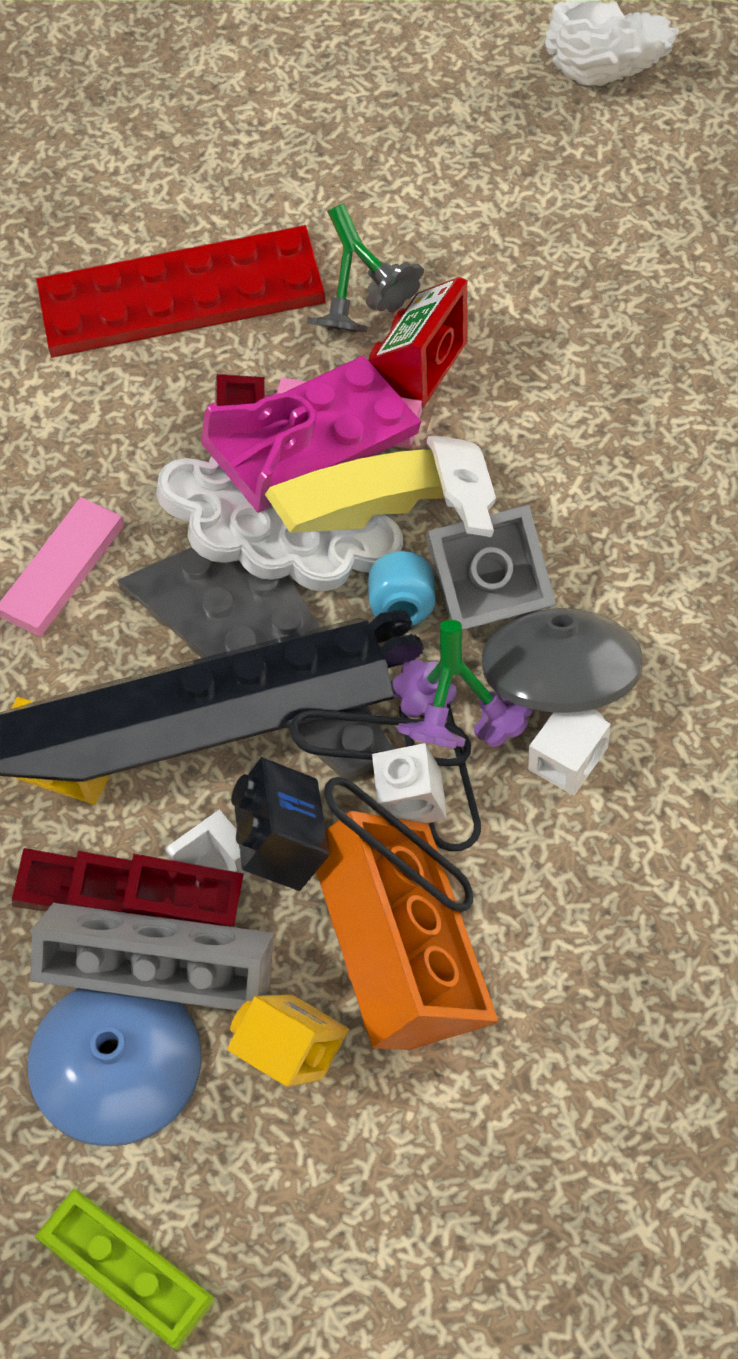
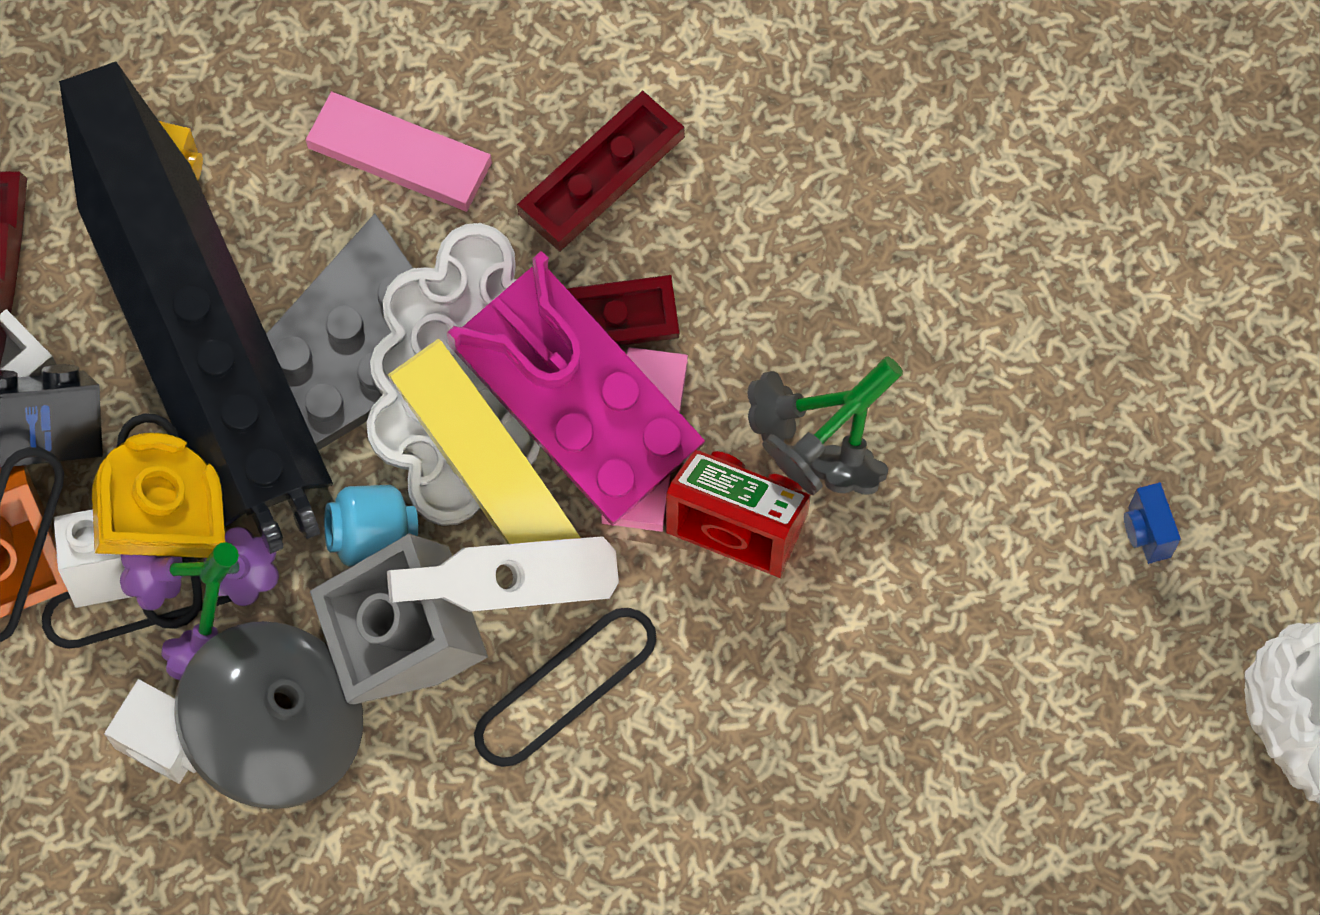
camera: 80 degrees right, 10 degrees up
(111, 424) = (601, 170): none -> dark red plate
(179, 291) = (826, 220): red plate -> none
(375, 714) = (156, 500): none -> yellow tile
(454, 119) = (1151, 523): none -> blue plate
(530, 493) = (578, 709): none -> black piece

